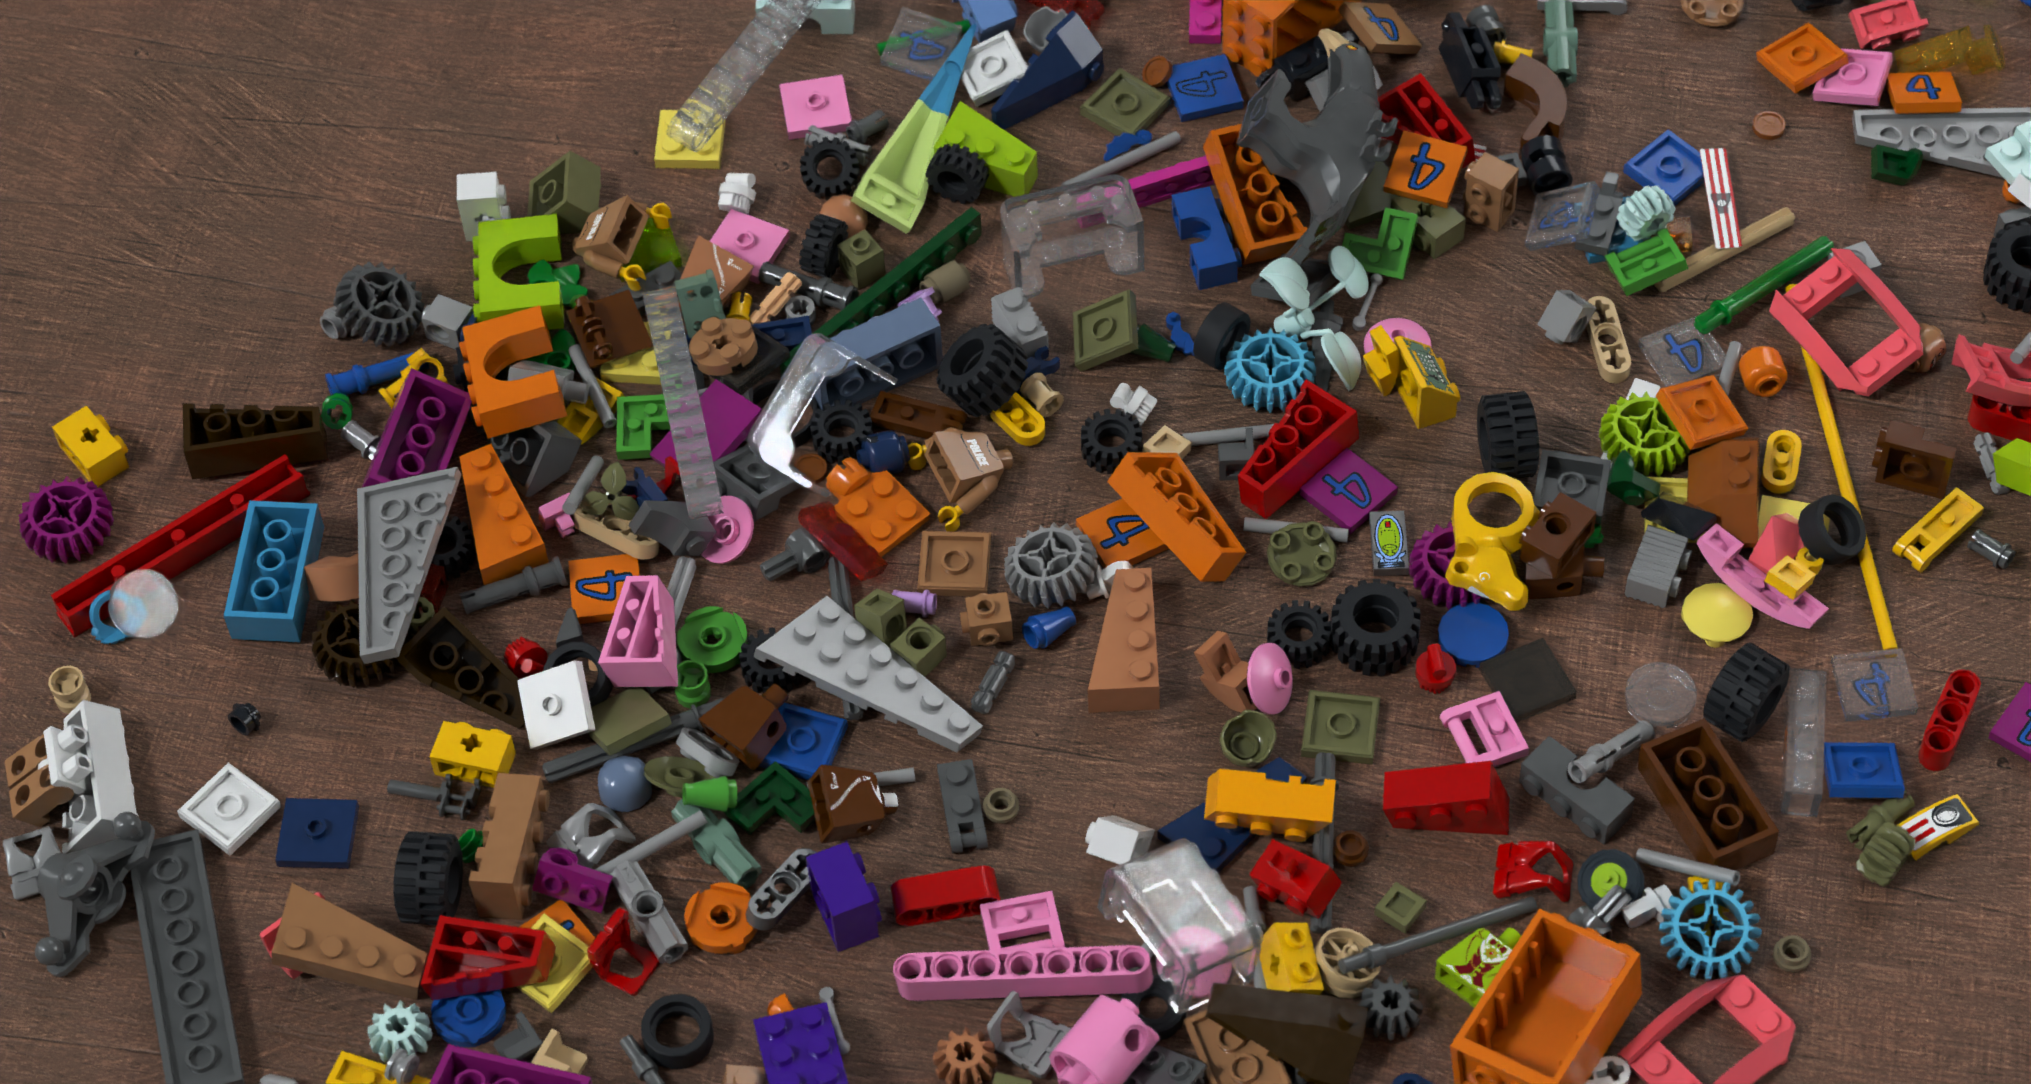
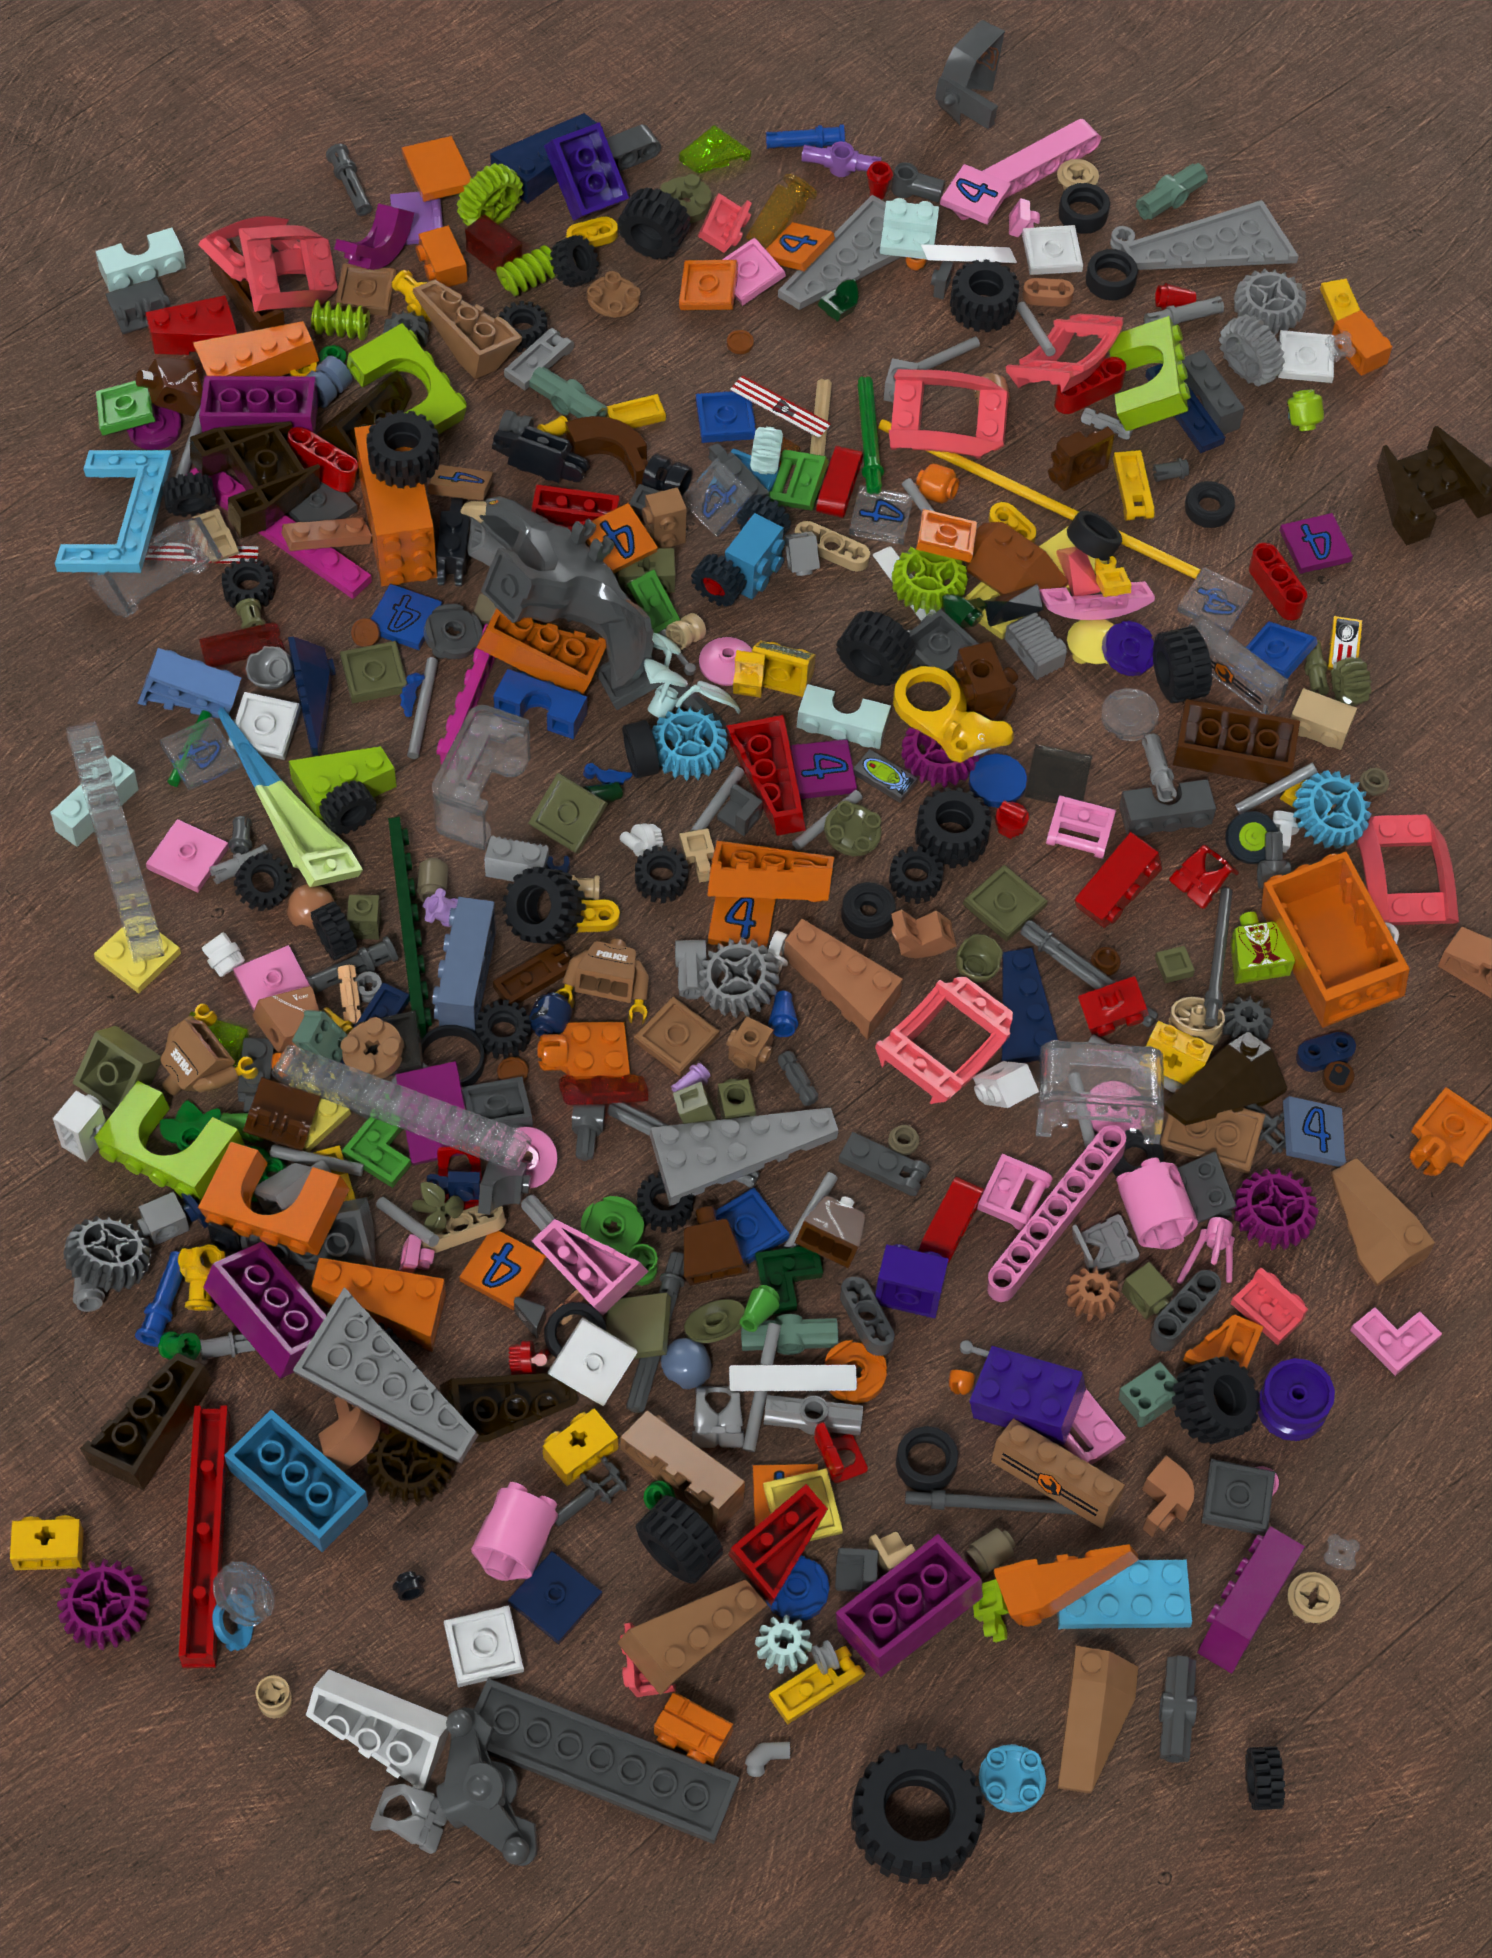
camera: 60 degrees left, 5 degrees up
(49, 775) = (353, 1754): hips -> none
(263, 1015) = (692, 1729): none -> orange brick
(342, 756) = (514, 1533): none -> bright pink cylinder
(530, 581) = (455, 1314): dark grey pin -> none
(564, 879) = (744, 1451): magenta plate -> none
(666, 868) = (792, 1378): none -> white sticker
(702, 748) = (719, 1289): light grey plate -> none
(772, 430) = (475, 1033): clear windscreen -> none
(1039, 510) = (689, 961): none -> light grey piece
(1083, 760) = (921, 1066): none -> coral wedge
(1210, 111) = (450, 646): none -> dark grey plate
(1223, 603) = (868, 926): none -> black tyre
(1269, 678) = (947, 910): bright pink dish -> none
(1269, 804) = (1051, 977): light orange wedge -> none
(1389, 289) = (687, 630): none -> tan wheel
(1425, 490) = (863, 727): none -> light aqua arch
(1516, 278) = (750, 556): none -> brick
(1600, 102) = (638, 411): none -> yellow tile
(1682, 296) = (839, 481): none -> red beam
(1728, 633) = (1128, 648): none -> dark purple tile
(1817, 859) = (1323, 718): none -> tan brick
(1928, 286) = (949, 354): none -> light grey piece
(1985, 626) = (1206, 518): none -> black tyre

